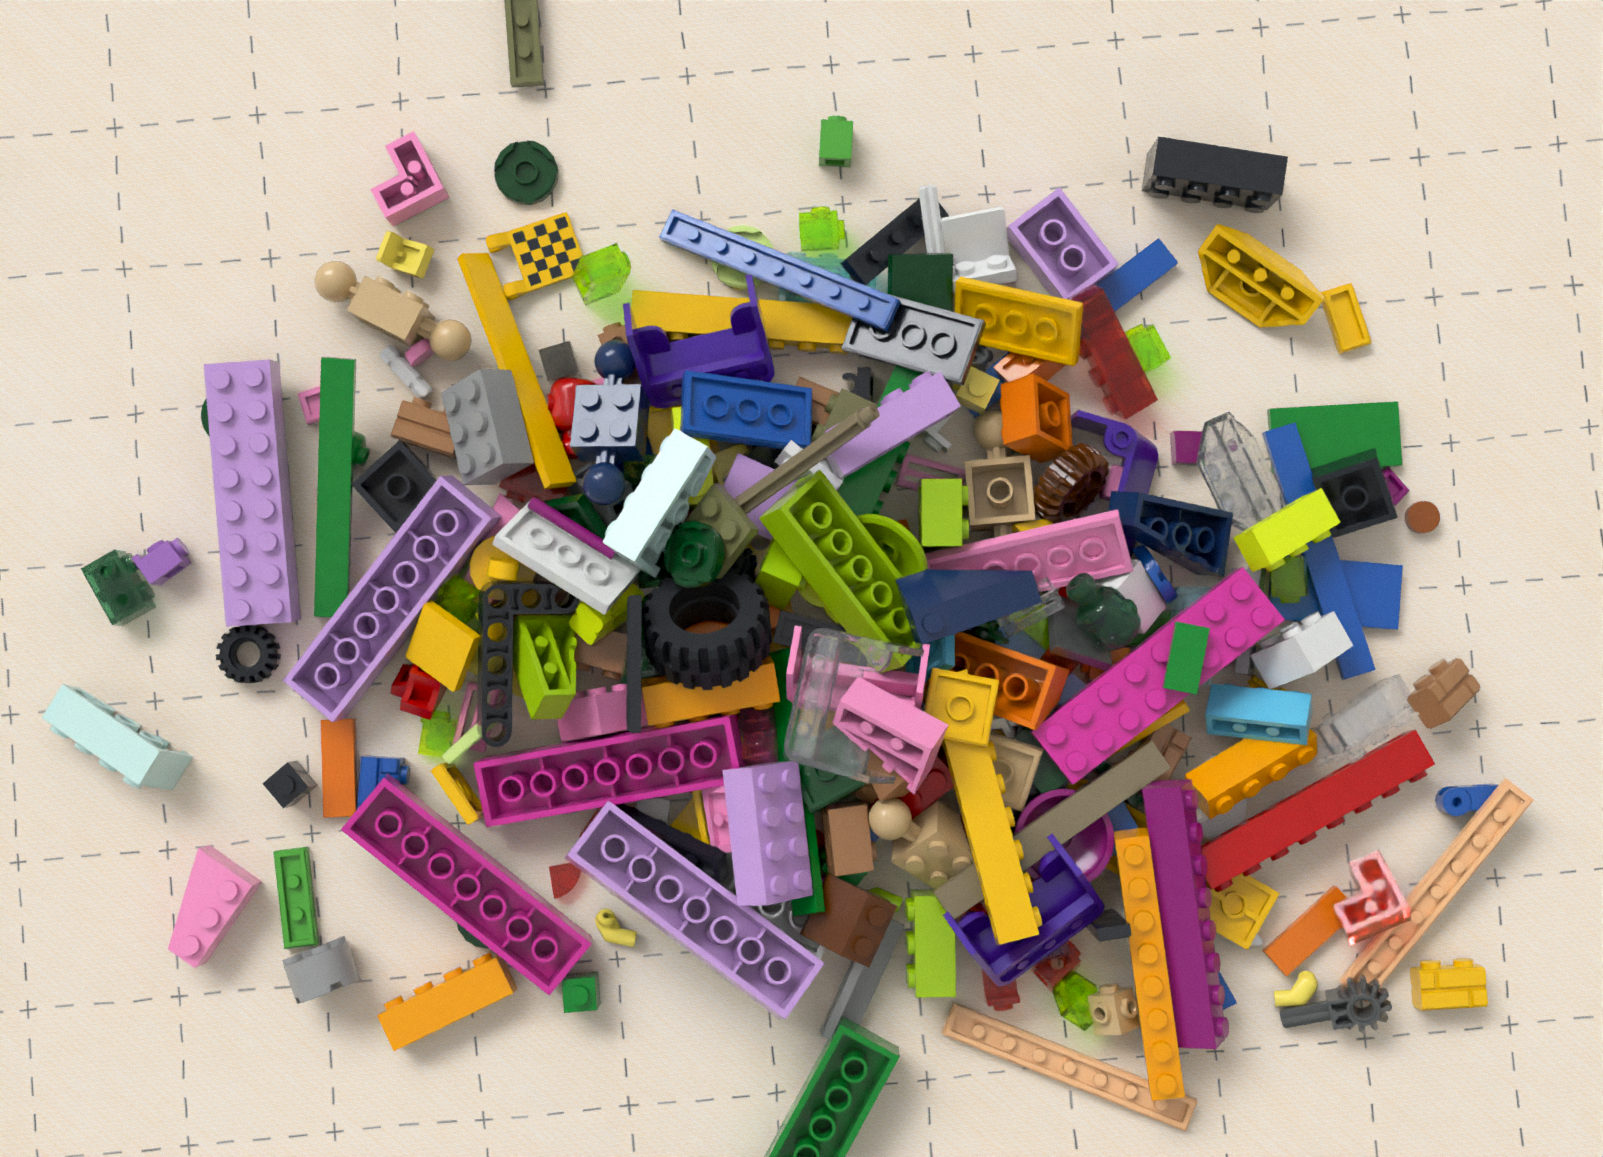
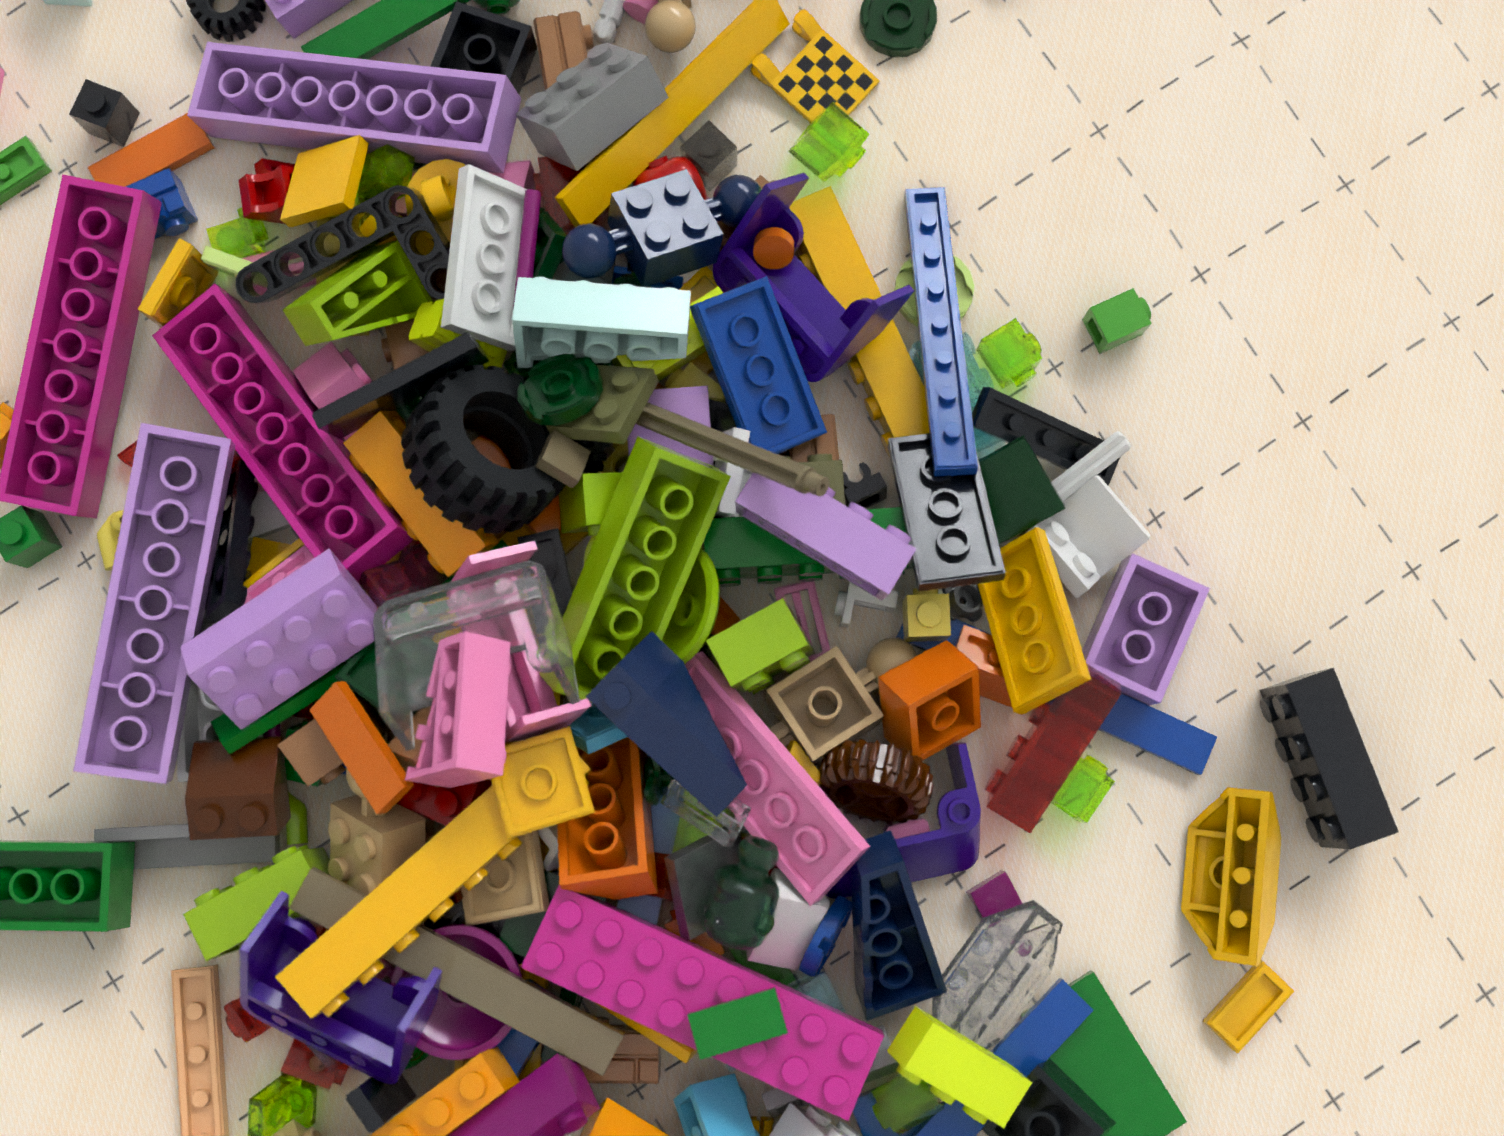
camera: 65 degrees right, 5 degrees down
(661, 354) = (773, 248): none -> orange tile
(743, 578) = (563, 459): none -> dark tan tile
(871, 816) = (361, 747): none -> orange tile

